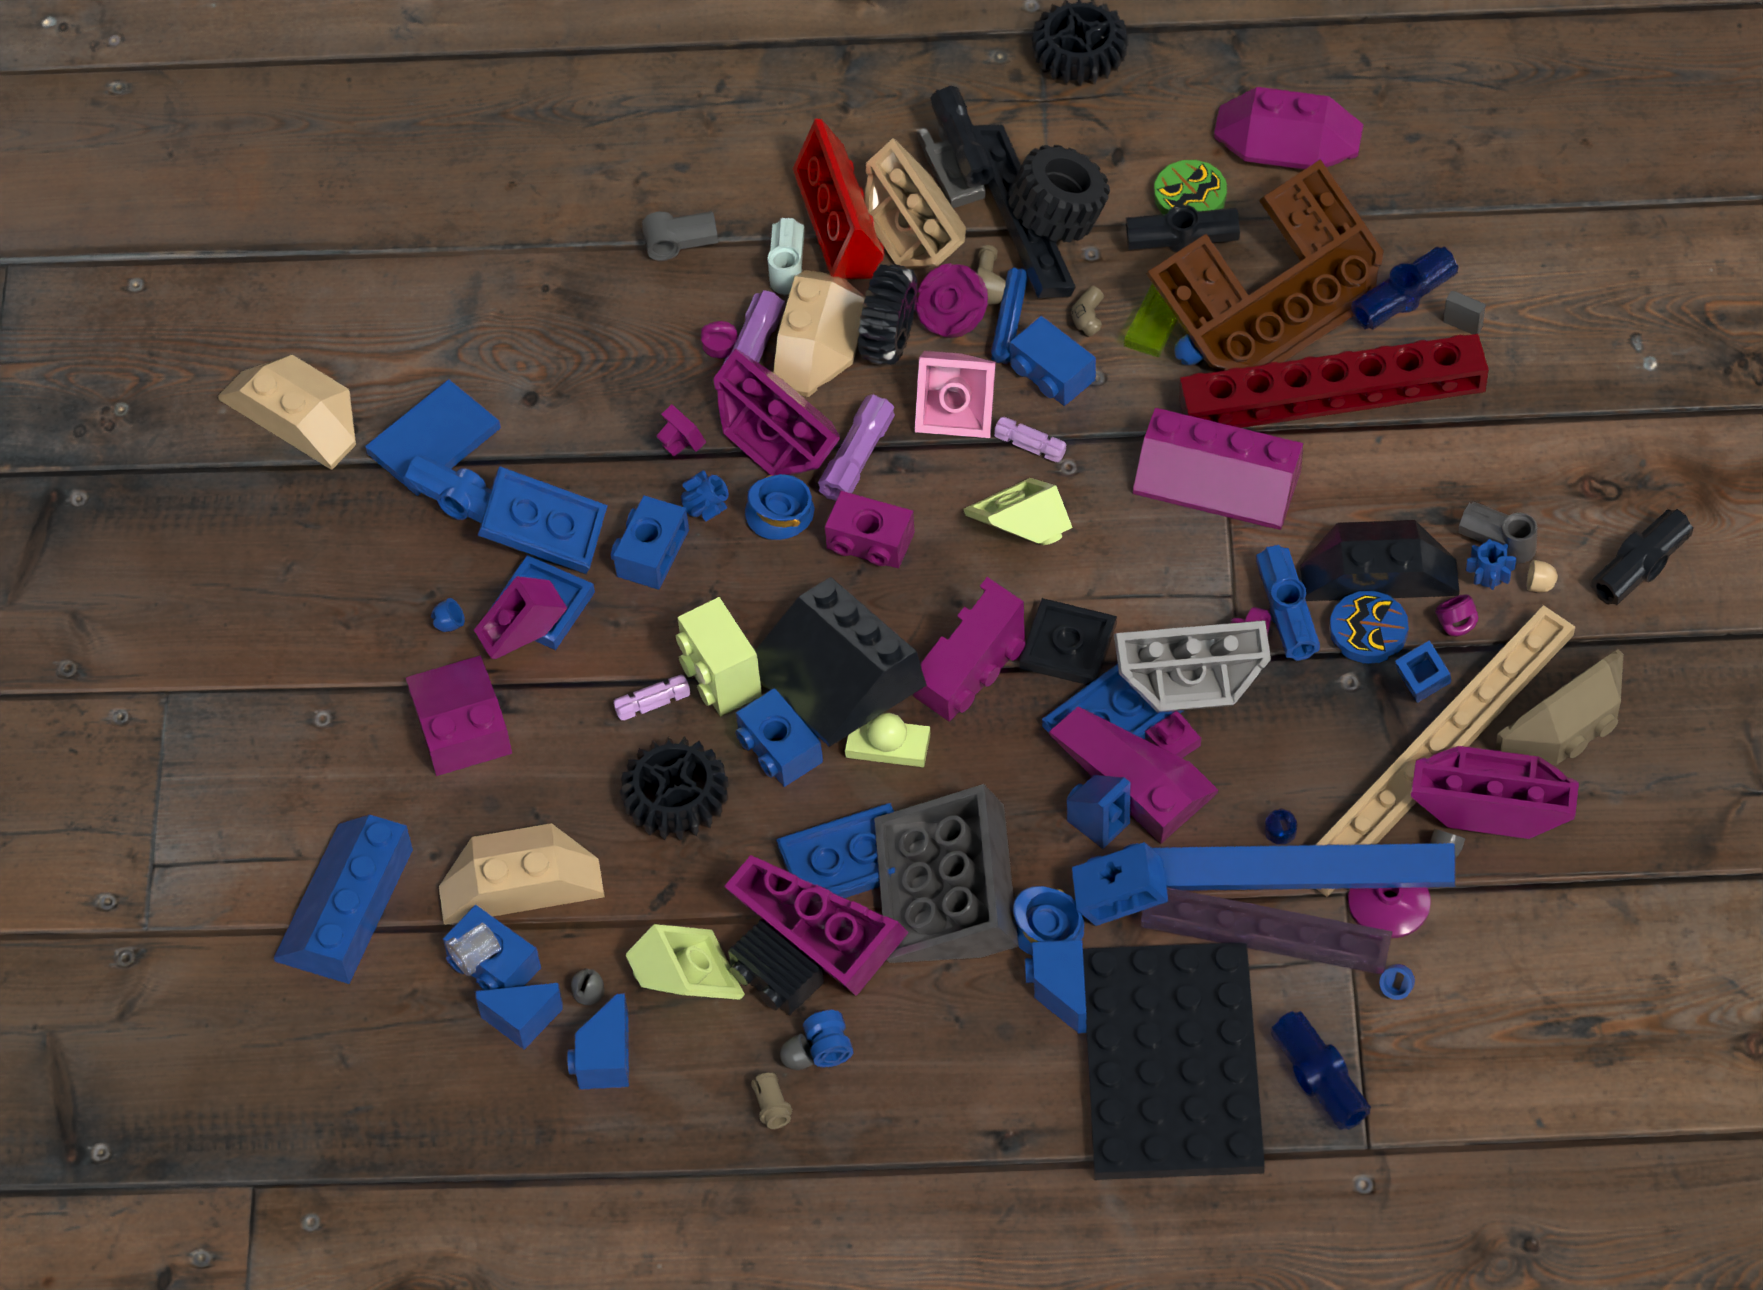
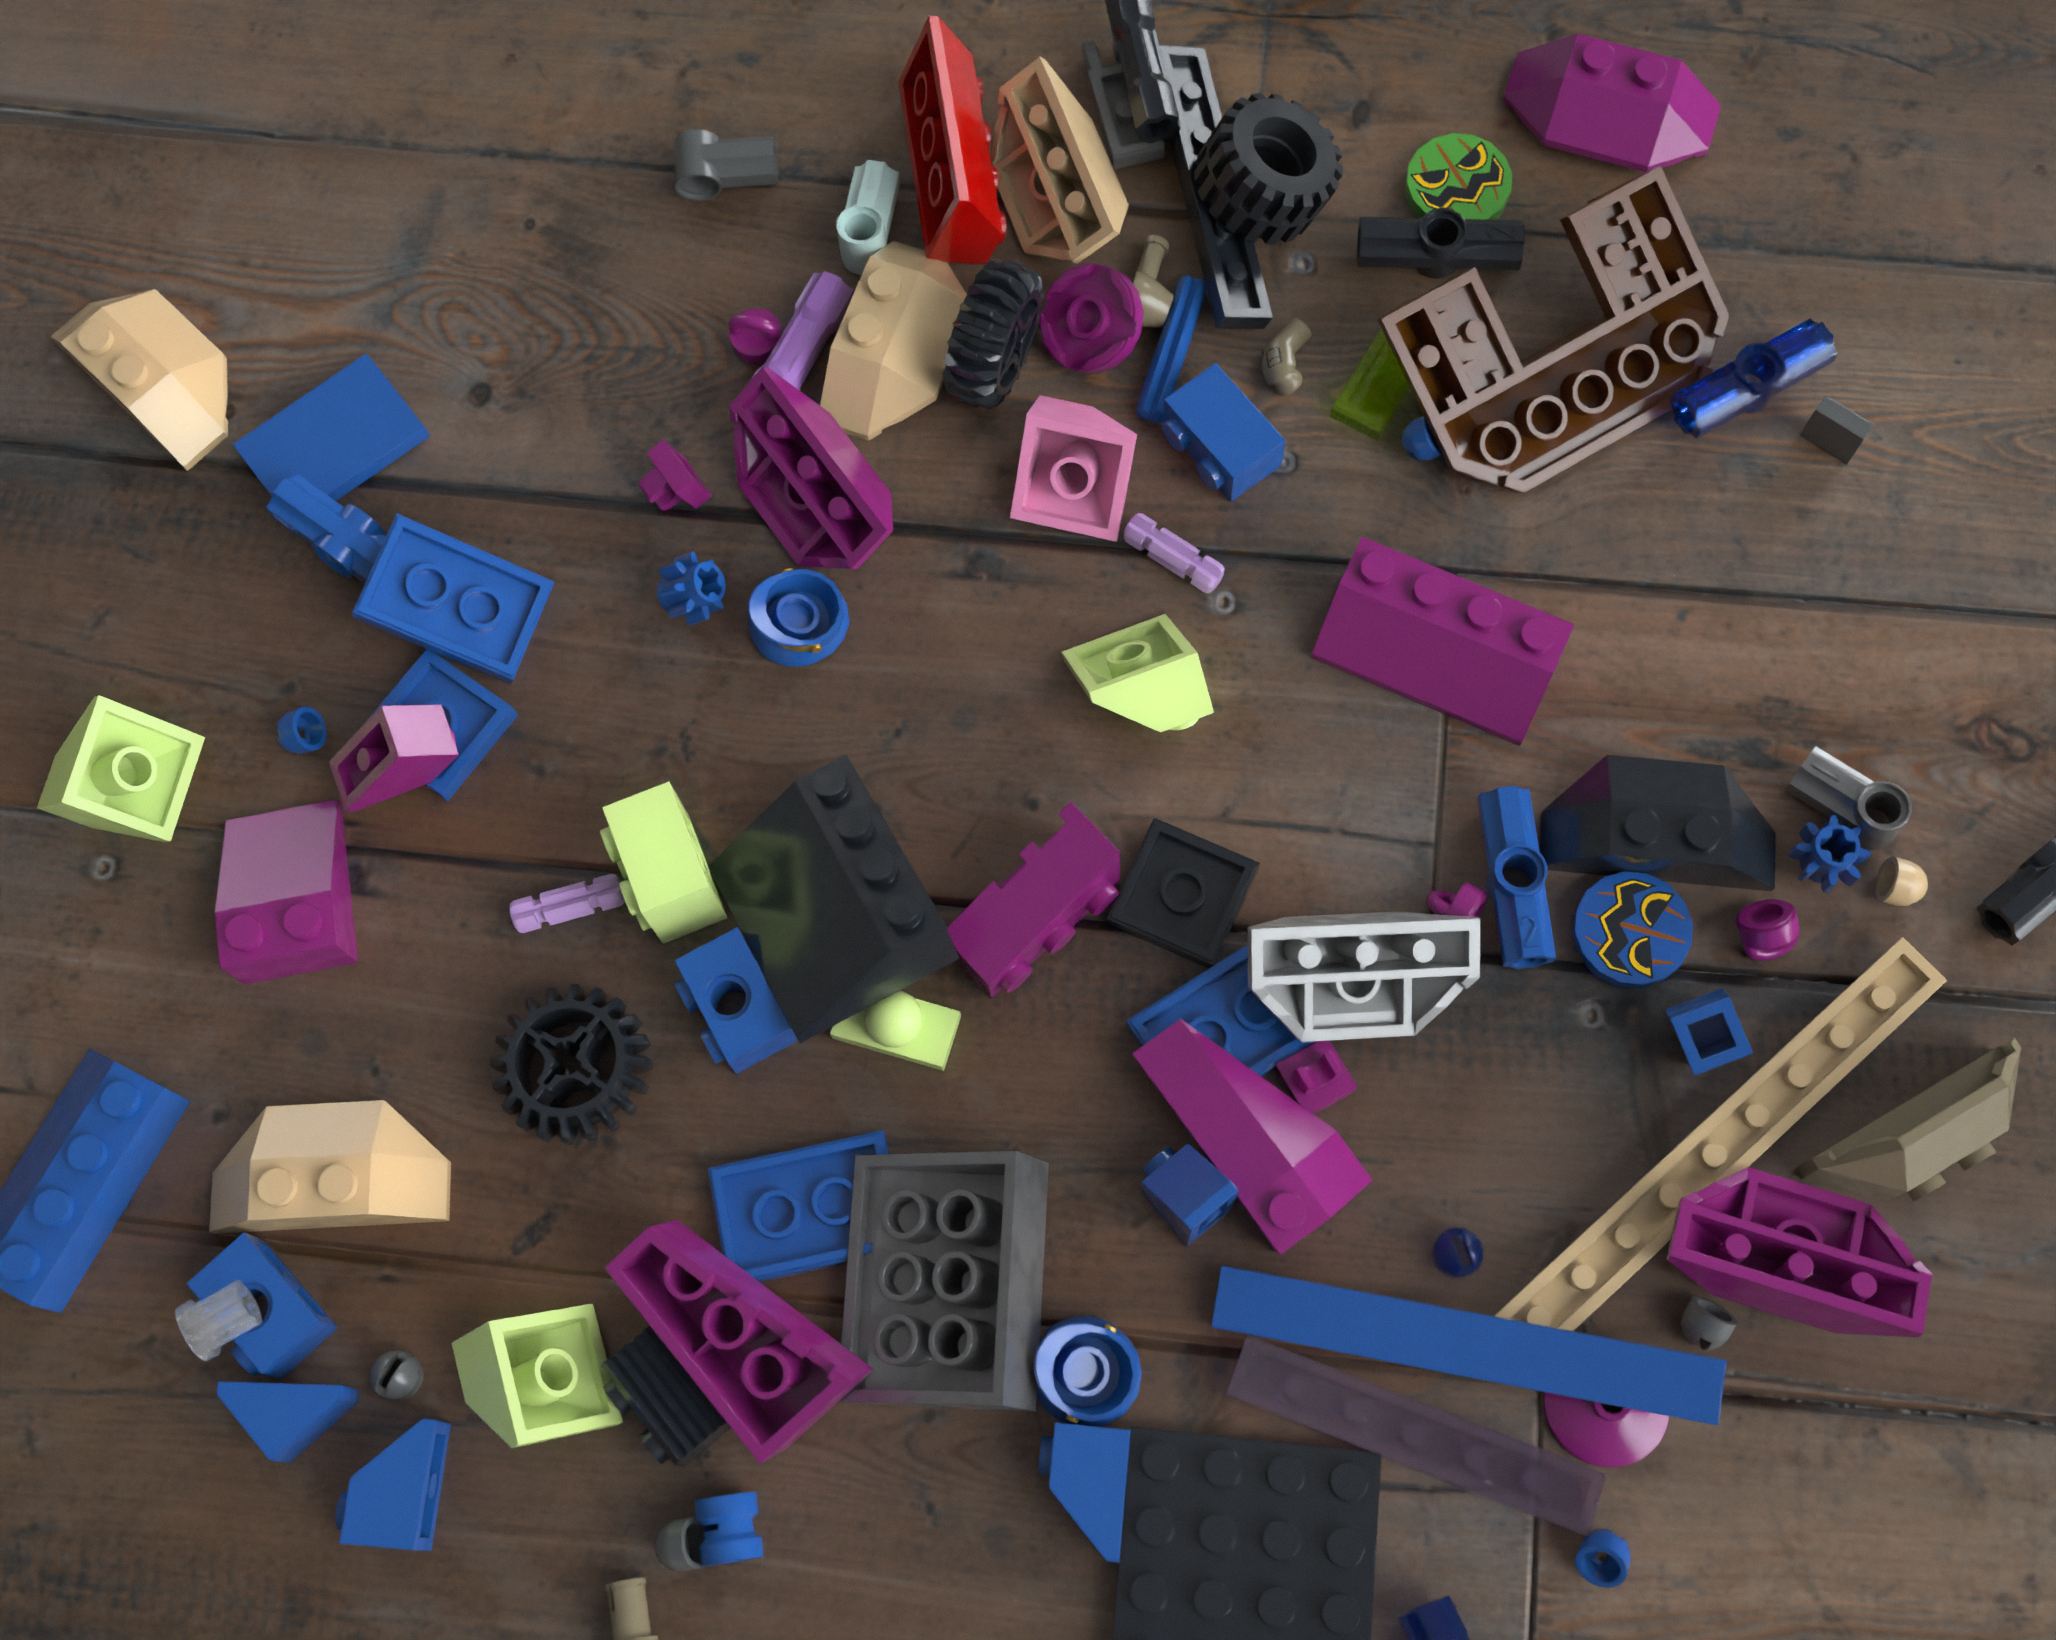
camera: 10 degrees right, 15 degrees up
(329, 653) = (122, 772): none -> yellowish green slope
(650, 561) = (605, 681): blue brick -> none
(855, 515) = (902, 648): magenta brick -> none
(867, 428) = (899, 569): medium lavender axle -> none
(1119, 883) = (1234, 1342): blue brick -> none
(1337, 382) = (1827, 498): dark red brick -> none

